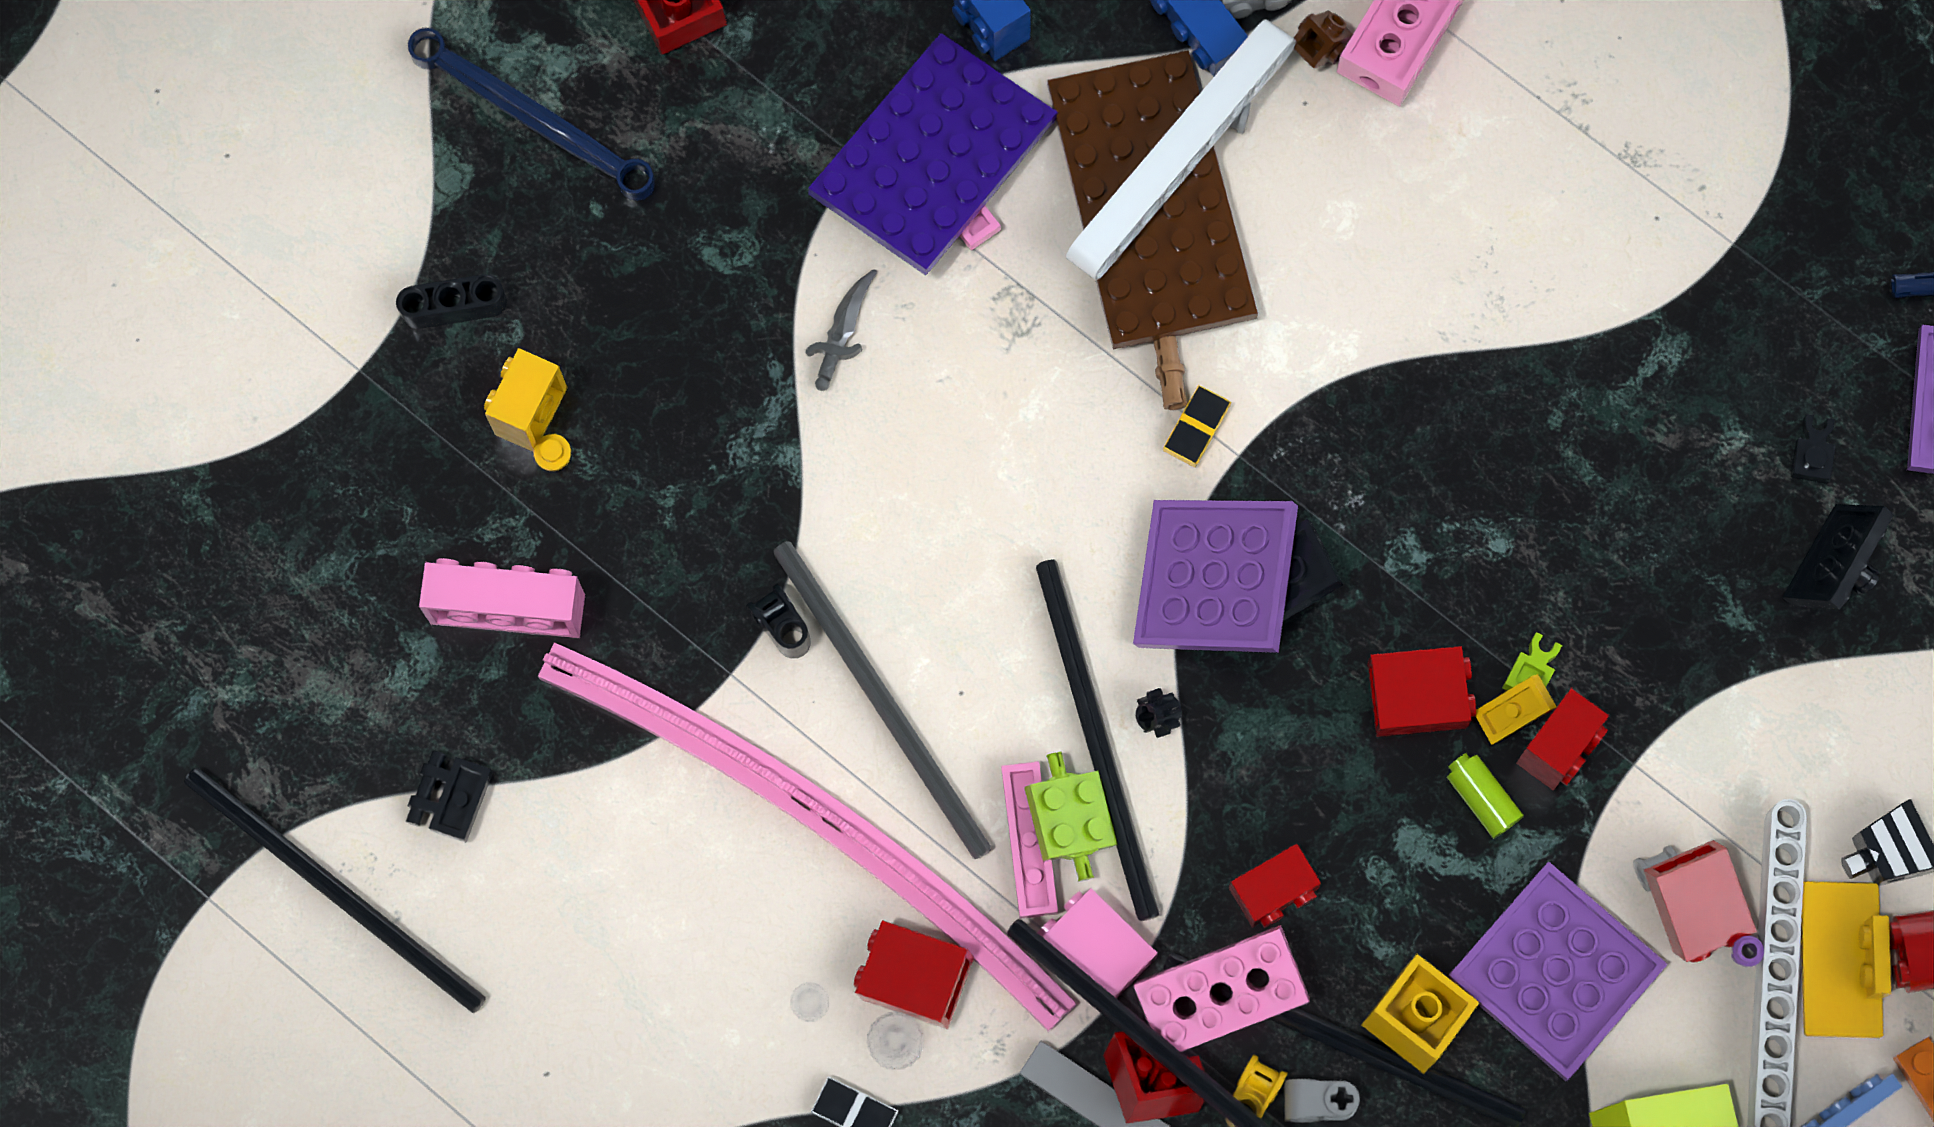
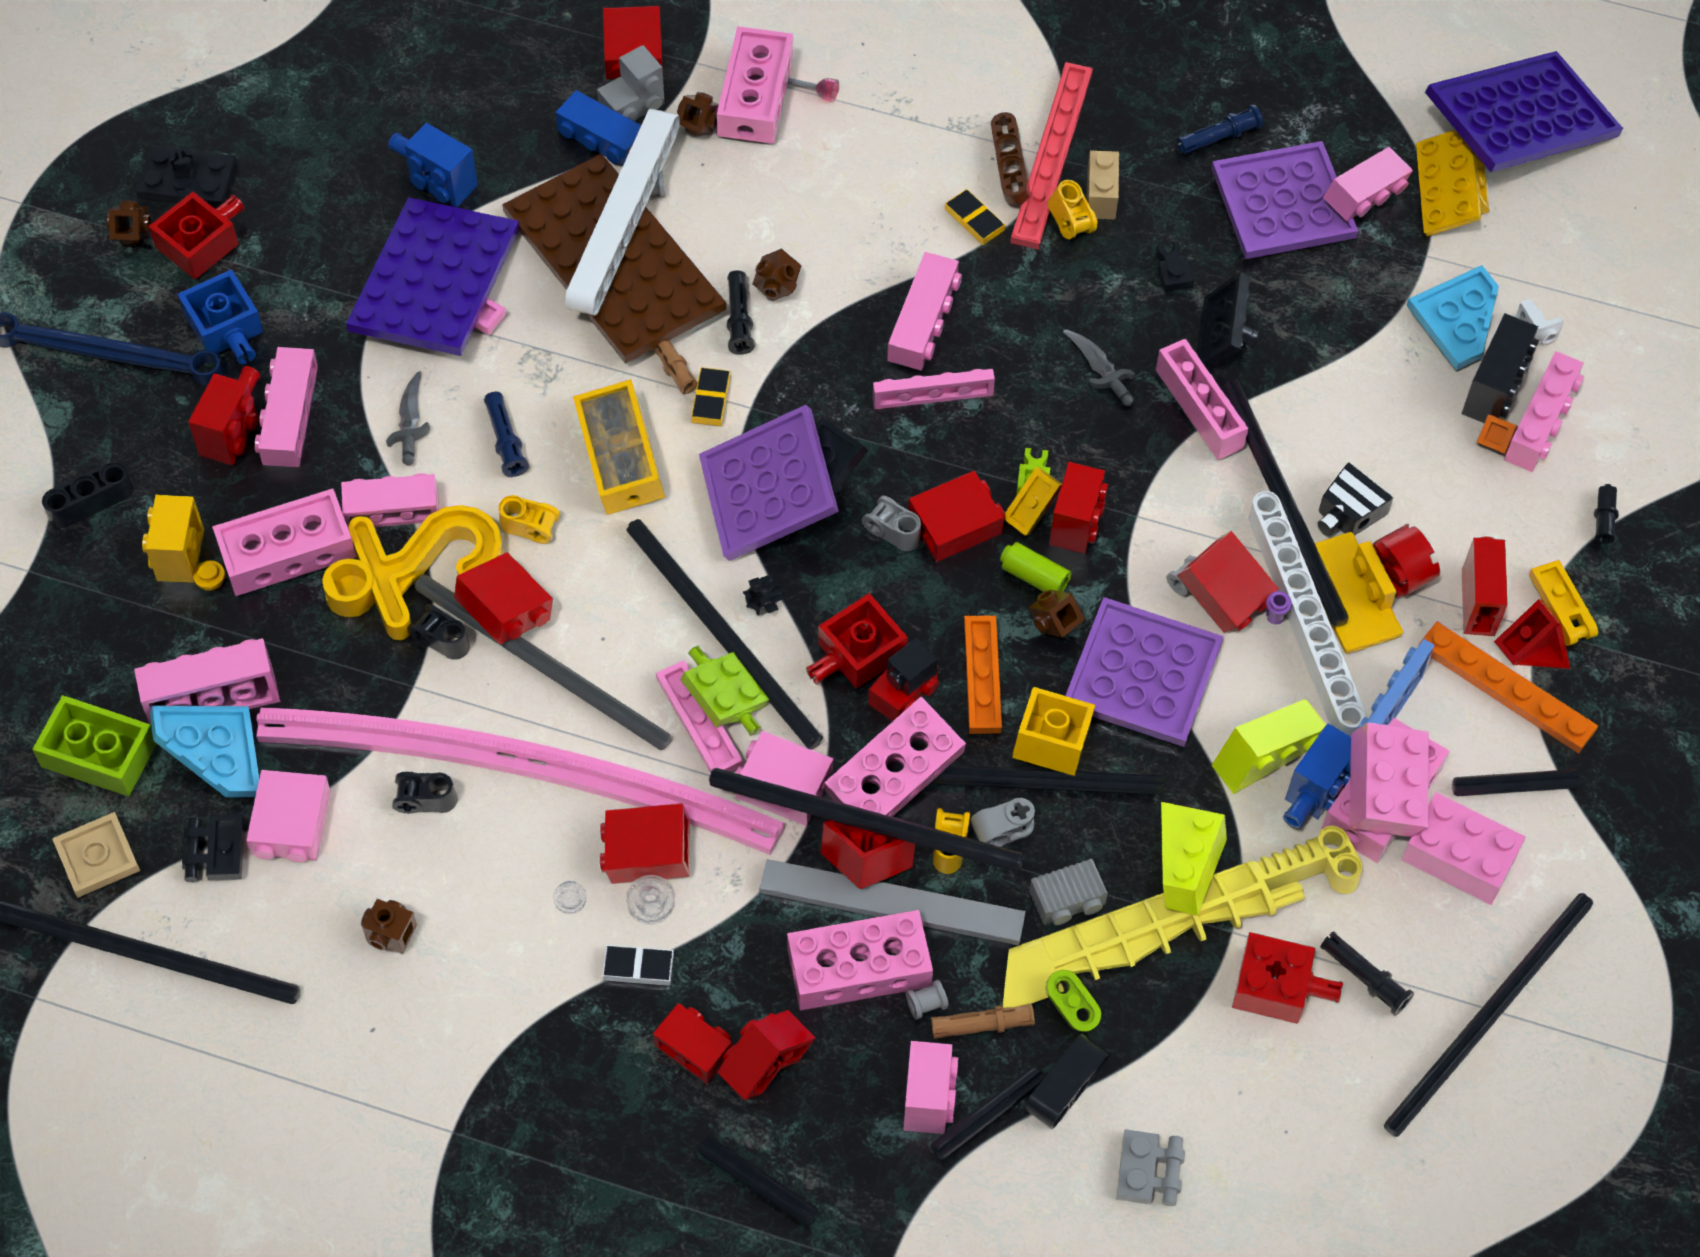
camera: 25 degrees left, 15 degrees down
(321, 756) = (96, 854): none -> tan plate
(360, 627) = (95, 745): none -> lime brick
(485, 672) = (211, 743): none -> medium azure plate
(539, 789) = (288, 816): none -> bright pink brick
(610, 974) = (388, 925): none -> reddish brown brick
(635, 259) = (225, 416): none -> red brick
(638, 424) = (284, 541): none -> bright pink brick
(676, 139) = (222, 315): none -> blue brick
(688, 812) = (421, 793): none -> black piece
(709, 267) = (287, 407): none -> bright pink brick
(743, 532) = (355, 584): none -> yellow piece
(783, 433) = (391, 499): none -> bright pink brick
(864, 610) = (503, 598): none -> red brick
(931, 515) = (530, 518): none -> yellow piece
(940, 407) = (507, 444): none -> dark blue pin
(1064, 460) = (619, 447): none -> brick
(1235, 837) = (857, 643): none -> red brick
(1266, 341) = (739, 322): none -> black pin
(1286, 879) = (911, 667): none -> black brick
(1332, 296) = (776, 274): none -> reddish brown brick
(1340, 667) = (890, 520): none -> light grey piece
(1370, 904) = (982, 675): none -> orange plate
(1472, 516) = (933, 388): none -> bright pink plate
(1484, 863) = (1056, 613): none -> reddish brown brick
(1487, 407) = (923, 311): none -> bright pink brick
(1491, 52) = (826, 89): none -> clear pink hinge
(1602, 294) = (974, 217): none -> black tile
(1672, 550) = (1100, 364): none -> piece
(1674, 230) = (1009, 158): none -> reddish brown beam
(1720, 336) = (1070, 210): none -> yellow piece
(1730, 240) = (1052, 155): none -> coral tile
(1771, 647) = (1201, 399): none -> bright pink brick
(1773, 309) = (1103, 183): none -> tan brick
(1815, 806) = (1276, 483): none -> black axle

